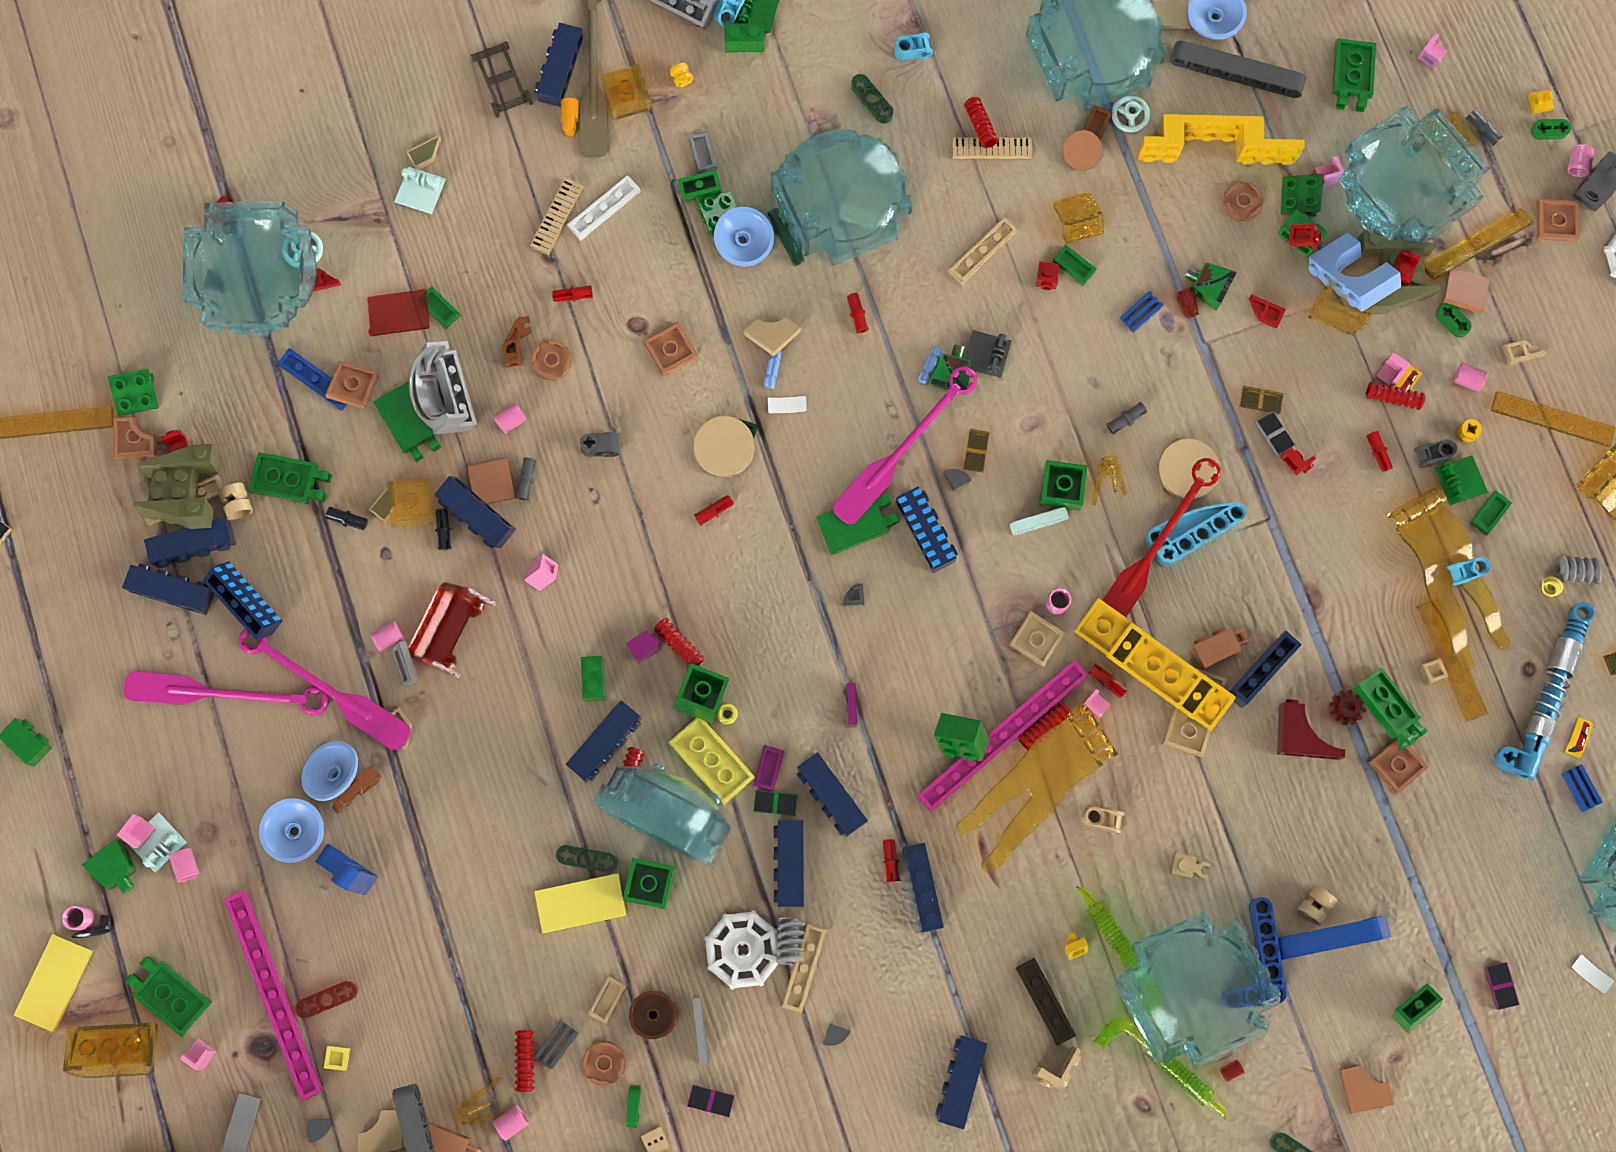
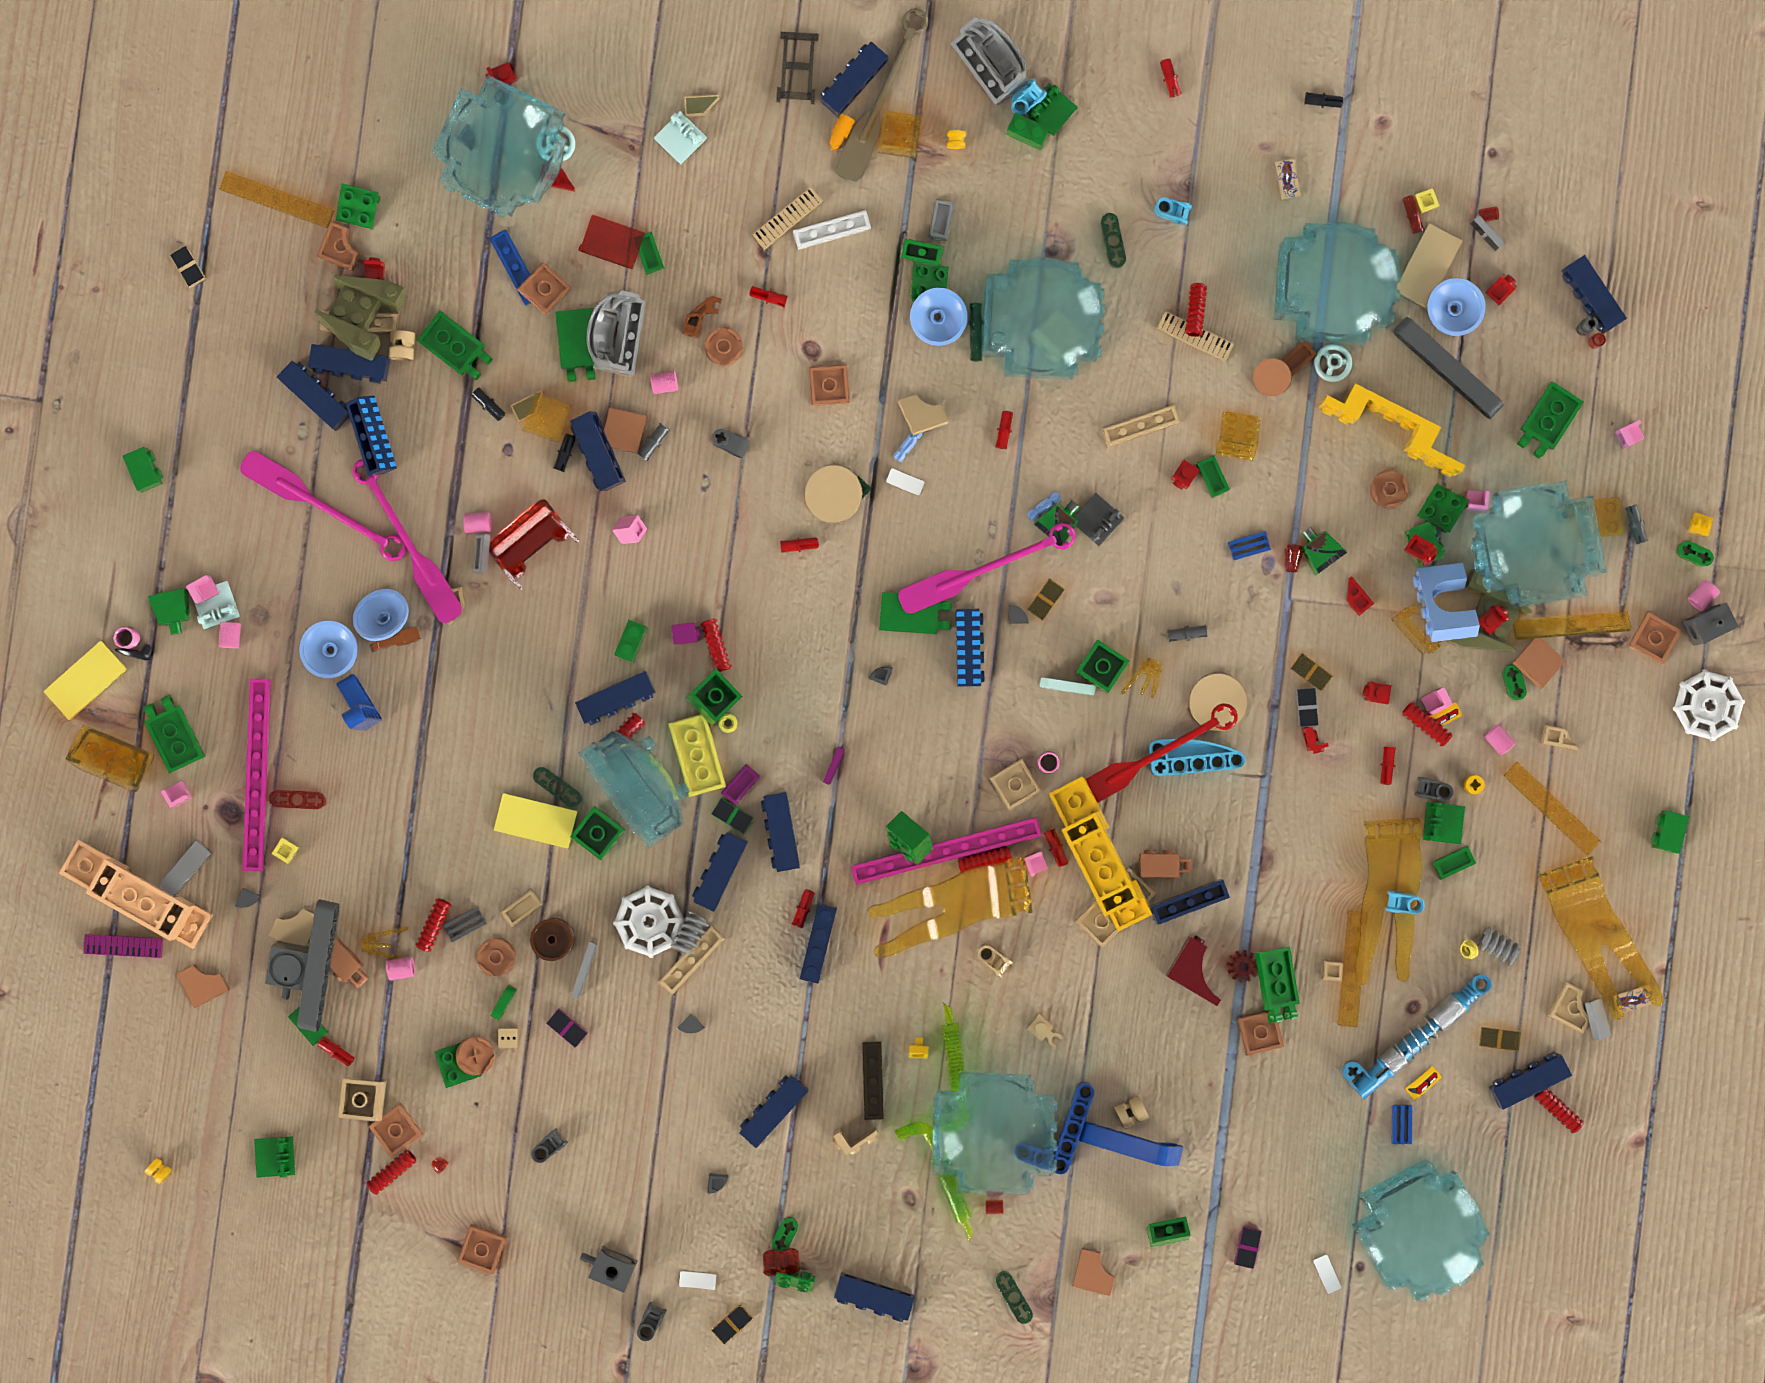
camera: 25 degrees right, 10 degrees up
(1332, 389) = (1377, 692): none -> red bracket

